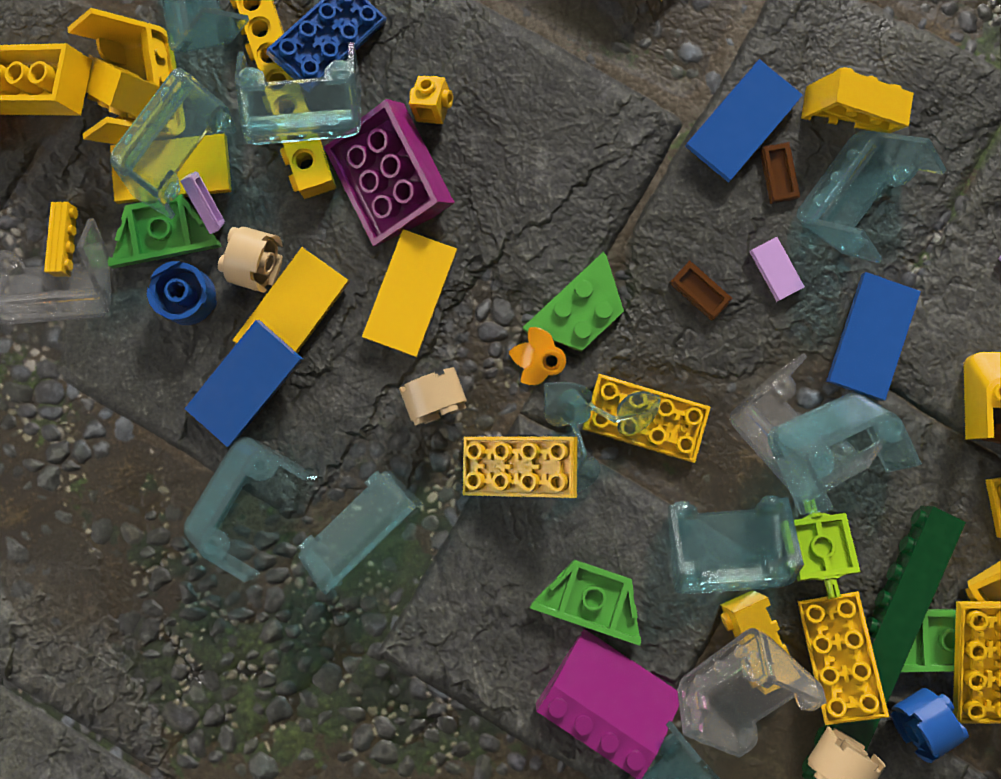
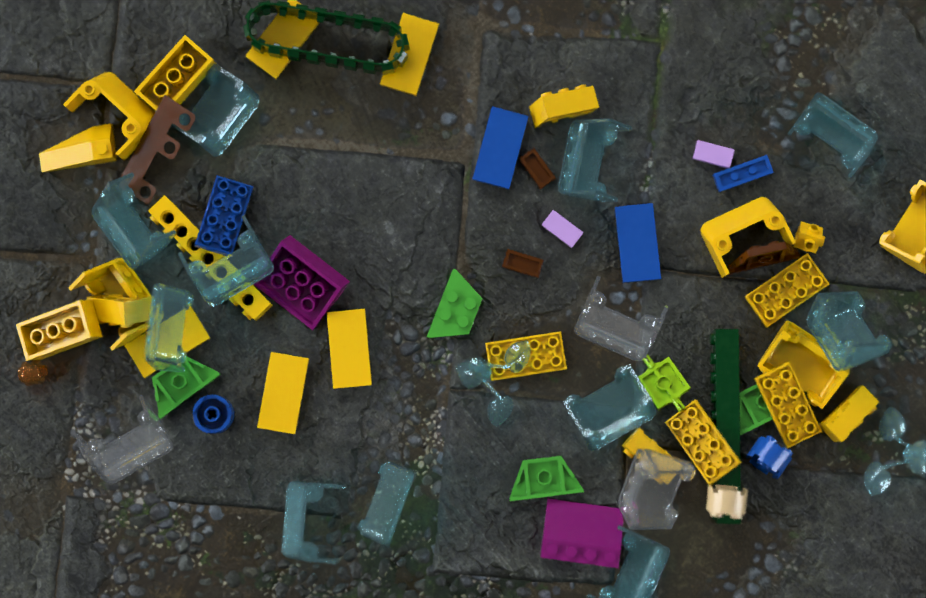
camera: 20 degrees left, 0 degrees up
(61, 239) = (122, 416): yellow piece -> none
(203, 202) = (199, 353): lavender tile -> none
(243, 383) = (277, 450): blue tile -> none
(251, 258) = (245, 373): tan brick -> none
(430, 99) = (305, 225): yellow brick -> none
(433, 395) = (393, 403): tan brick -> none
(520, 466) = (463, 421): yellow tile -> none
(533, 357) = (441, 350): light orange plate -> none
(804, 445) = (620, 328): clear light blue windscreen -> none

